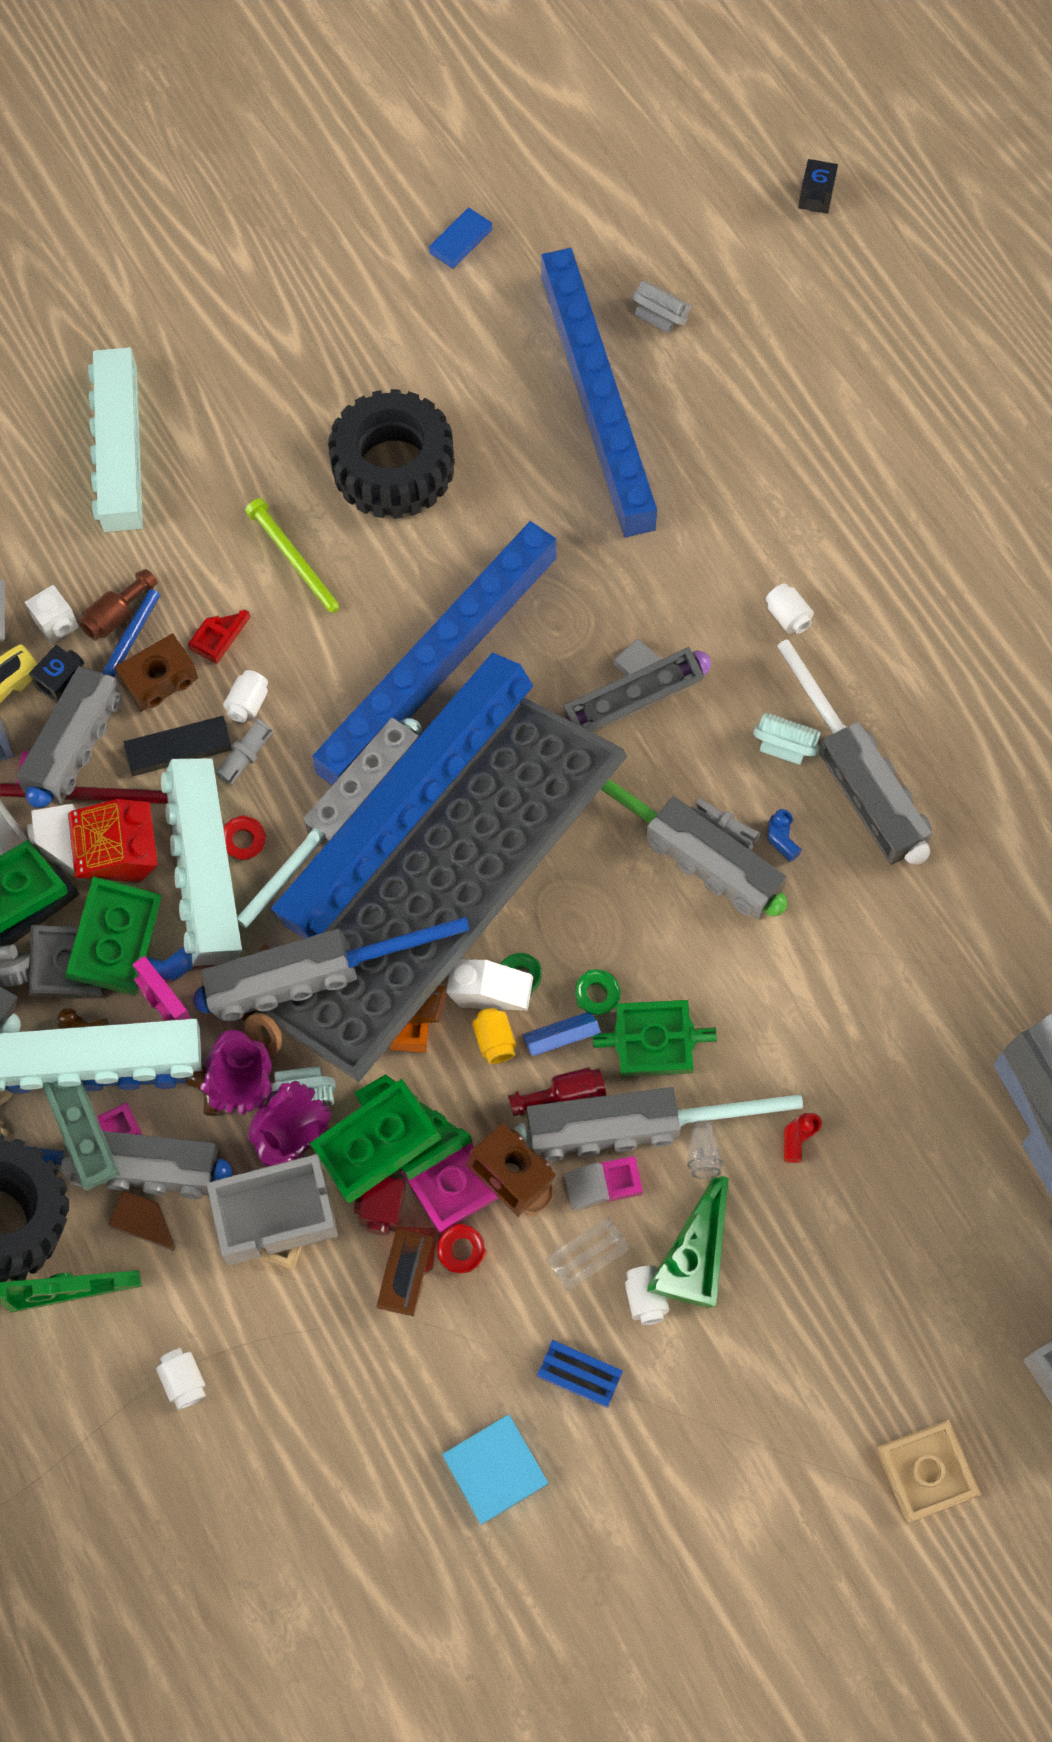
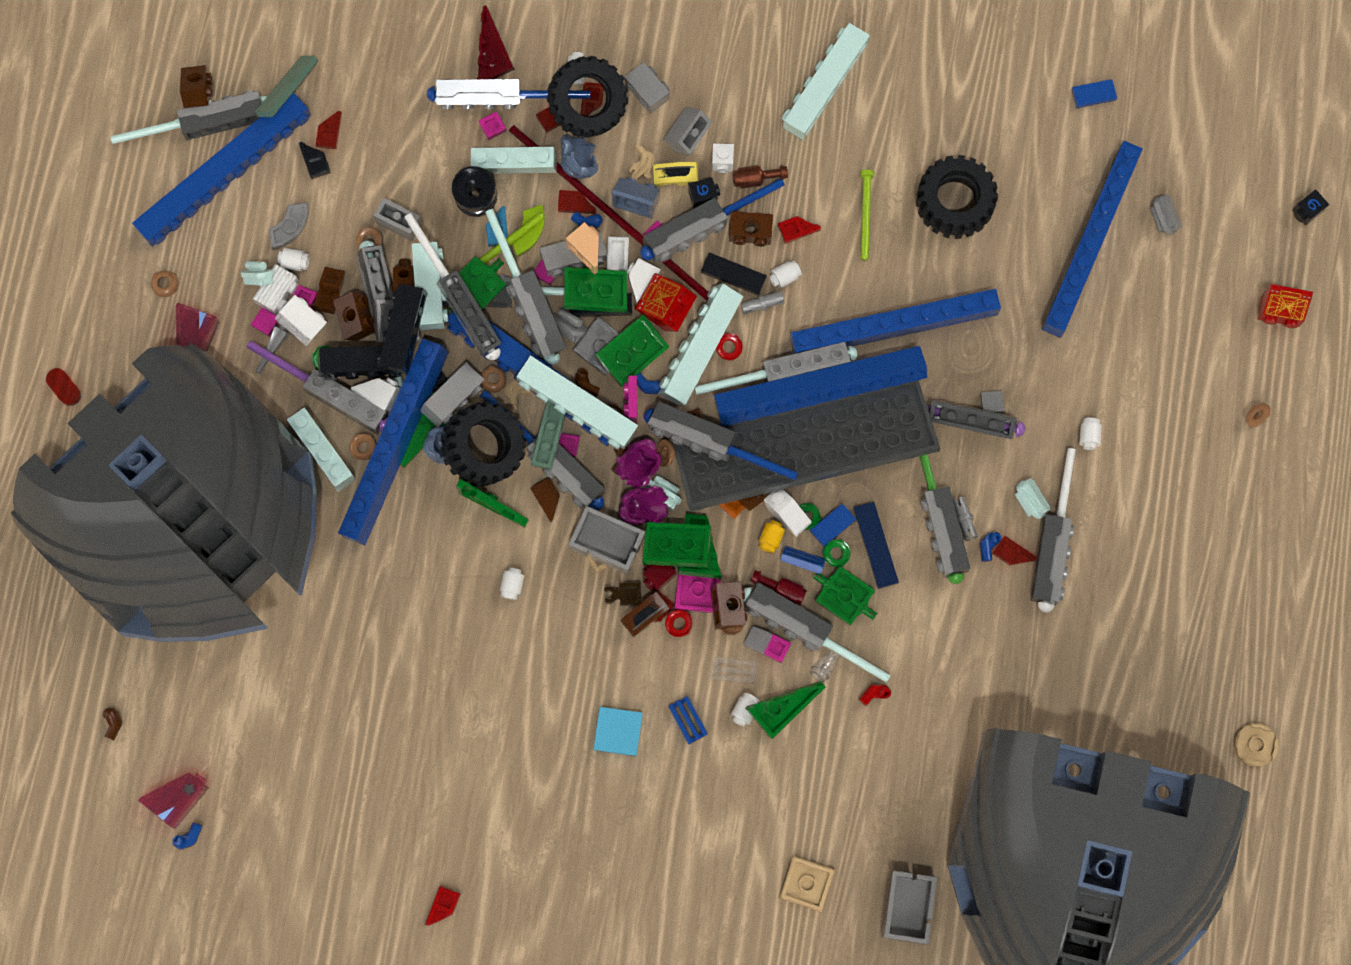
camera: 35 degrees right, 10 degrees up
(358, 1264) = (628, 594): none -> dark brown plate
(562, 961) = (833, 525): none -> blue tile
(639, 944) = (876, 545): none -> dark blue tile
(819, 822) = (1012, 553): none -> clear red tile
(886, 303) = (1284, 306): none -> red slope
(964, 445) = (1263, 414): none -> medium nougat piece

